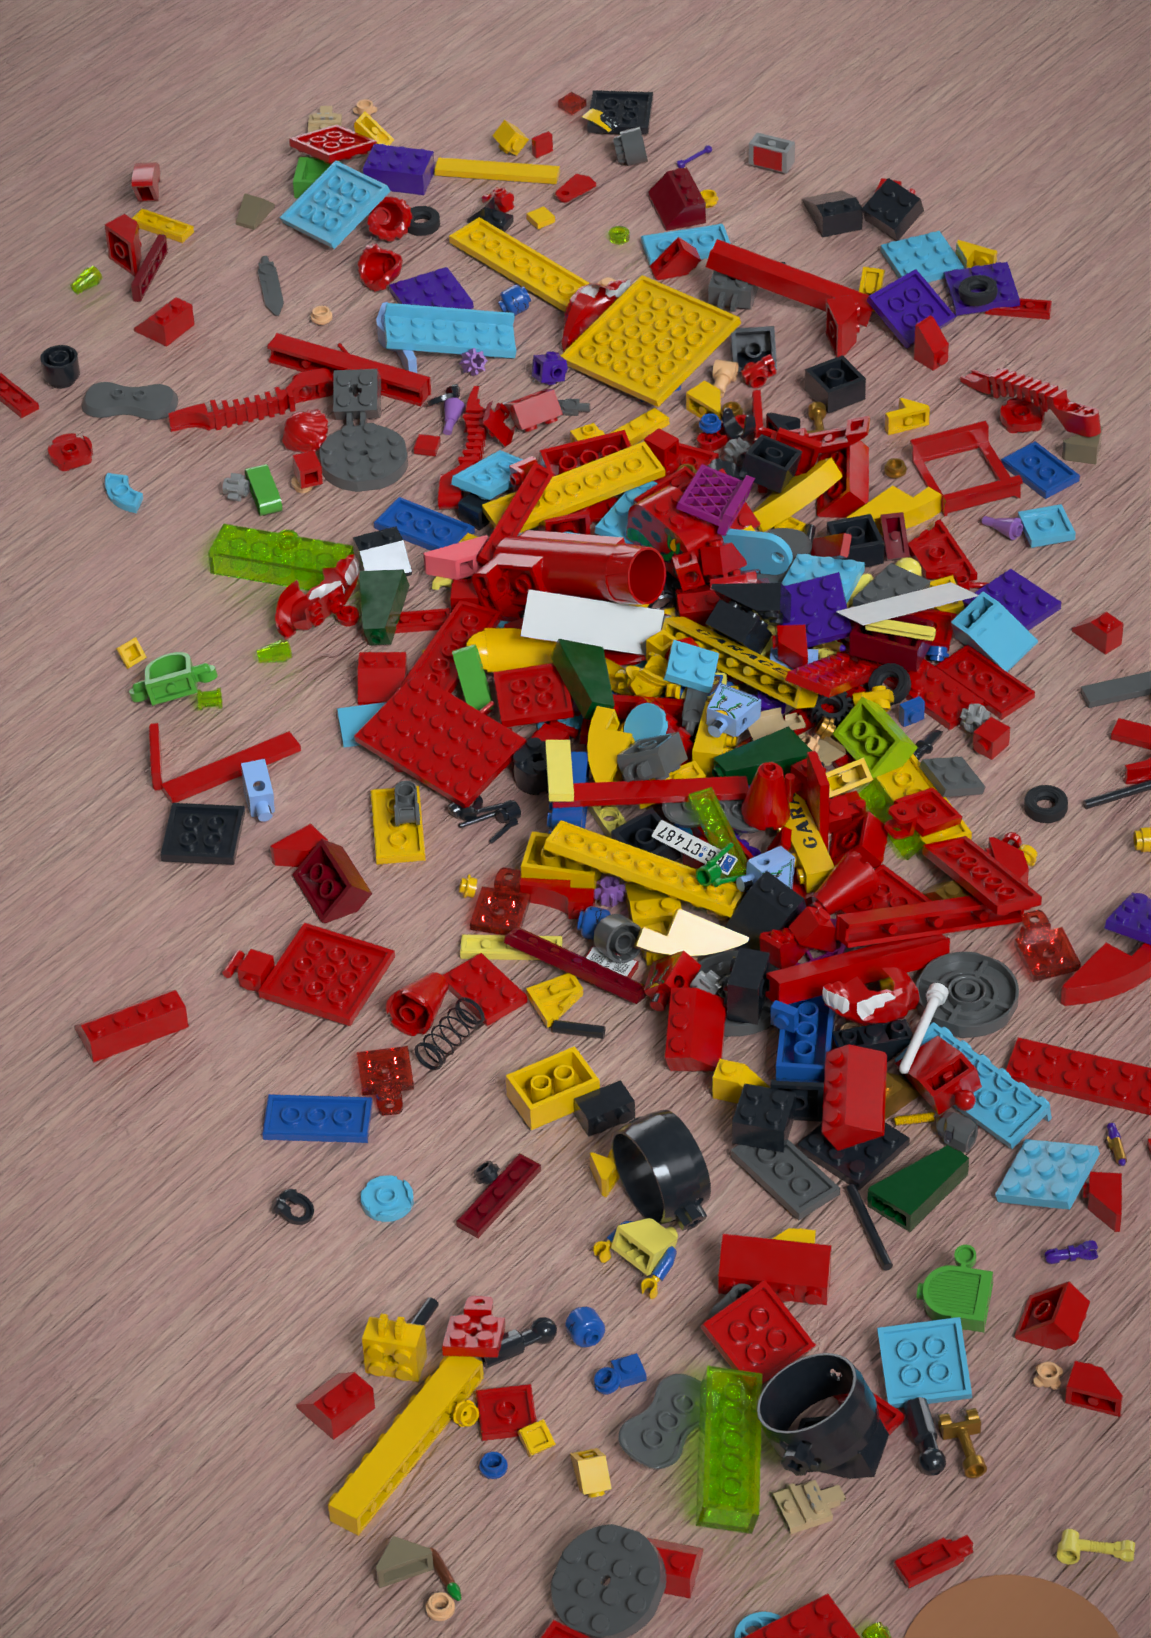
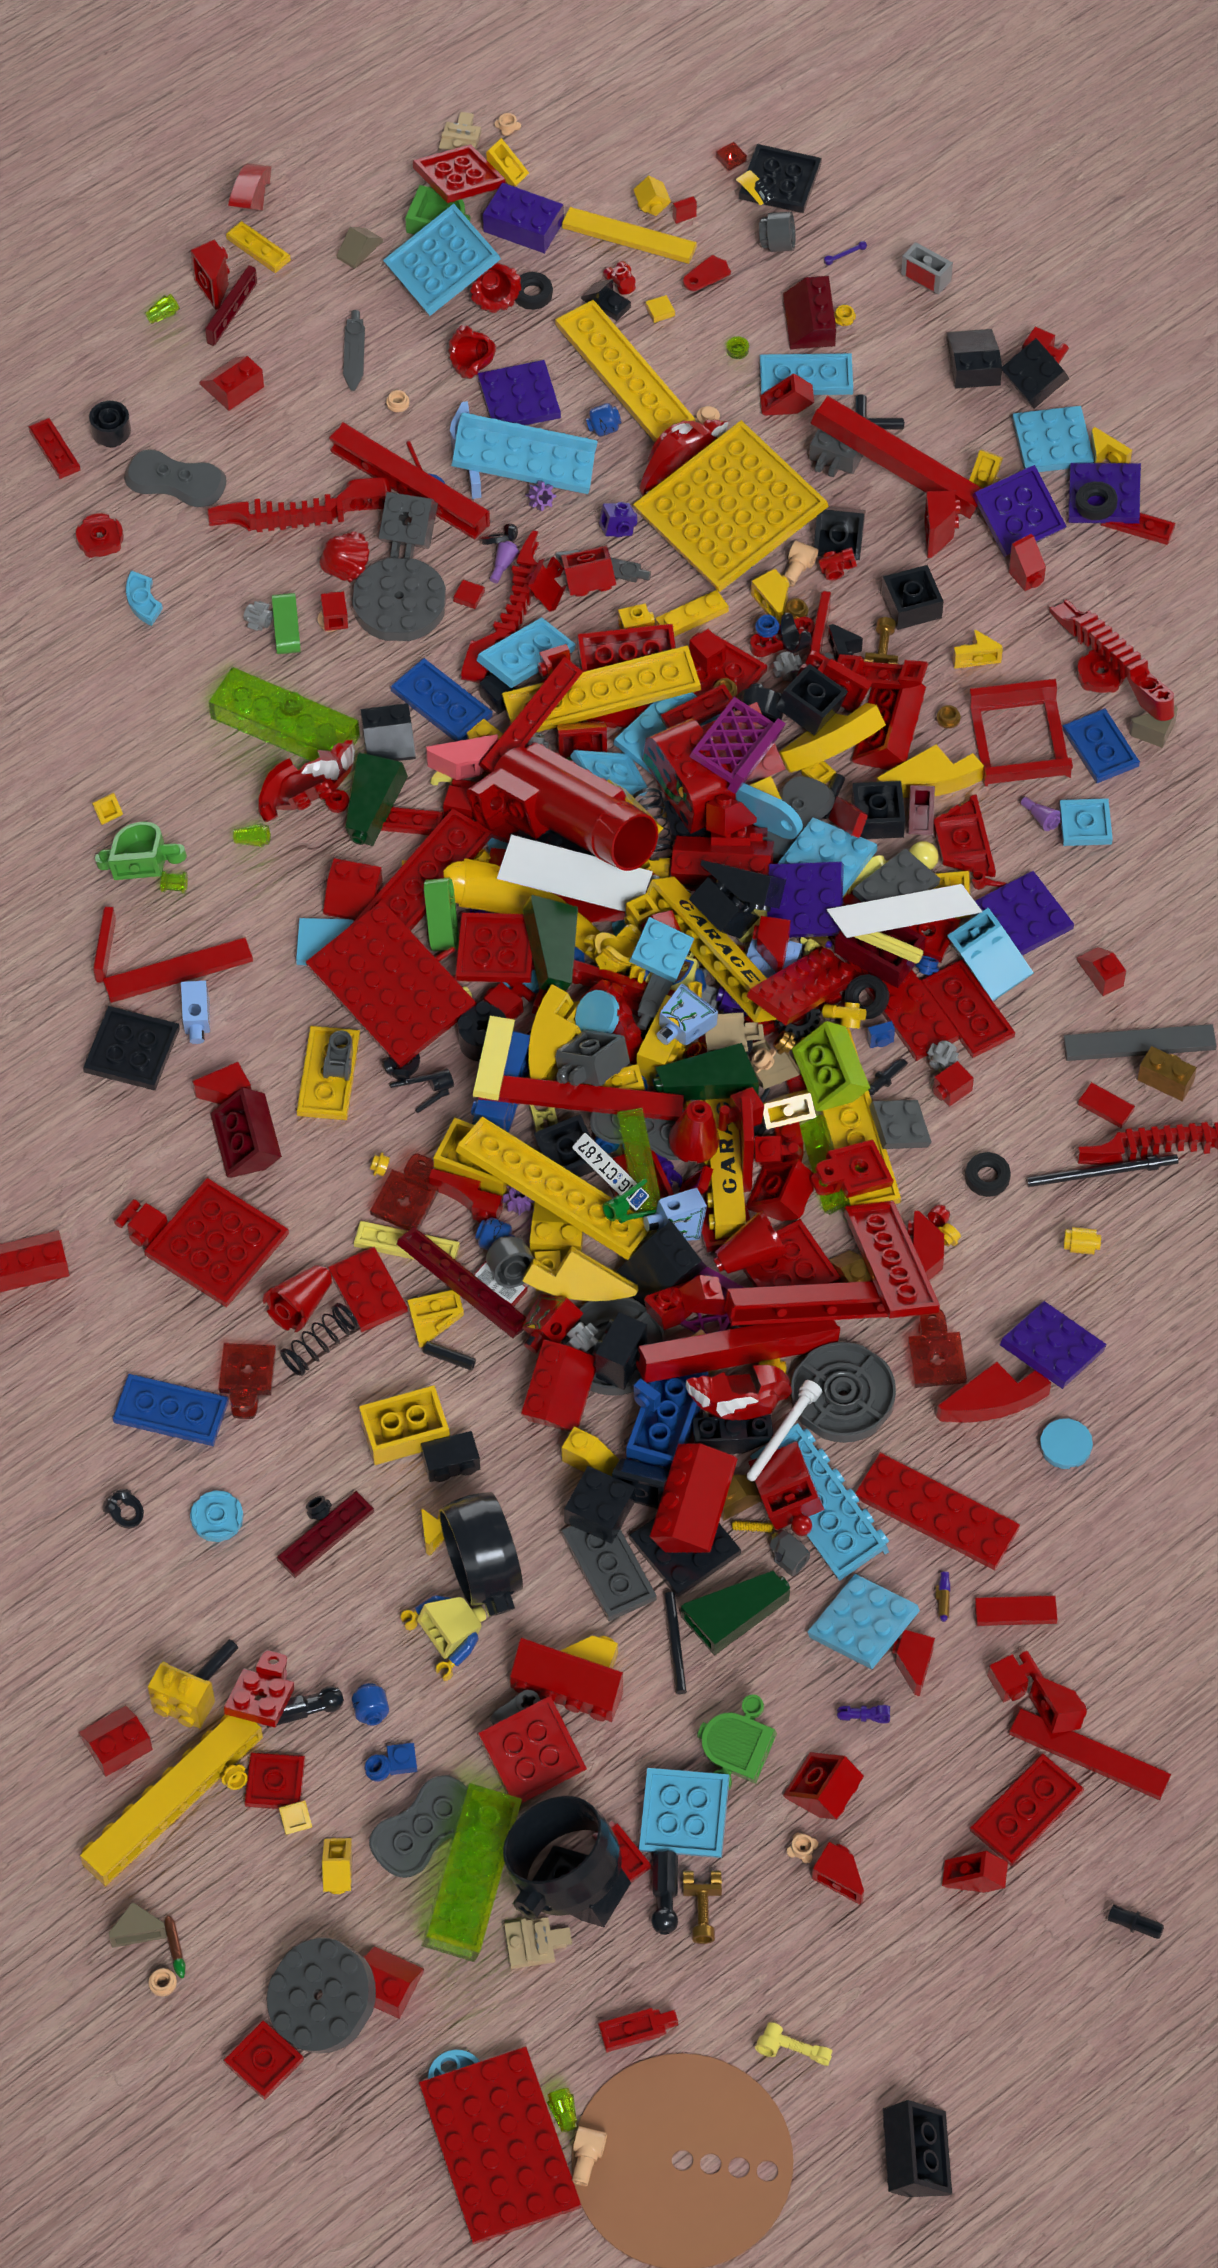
camera: 10 degrees right, 15 degrees up
(493, 1459) = (248, 1831): blue plate -> none
(687, 563) = (690, 824): red brick -> none

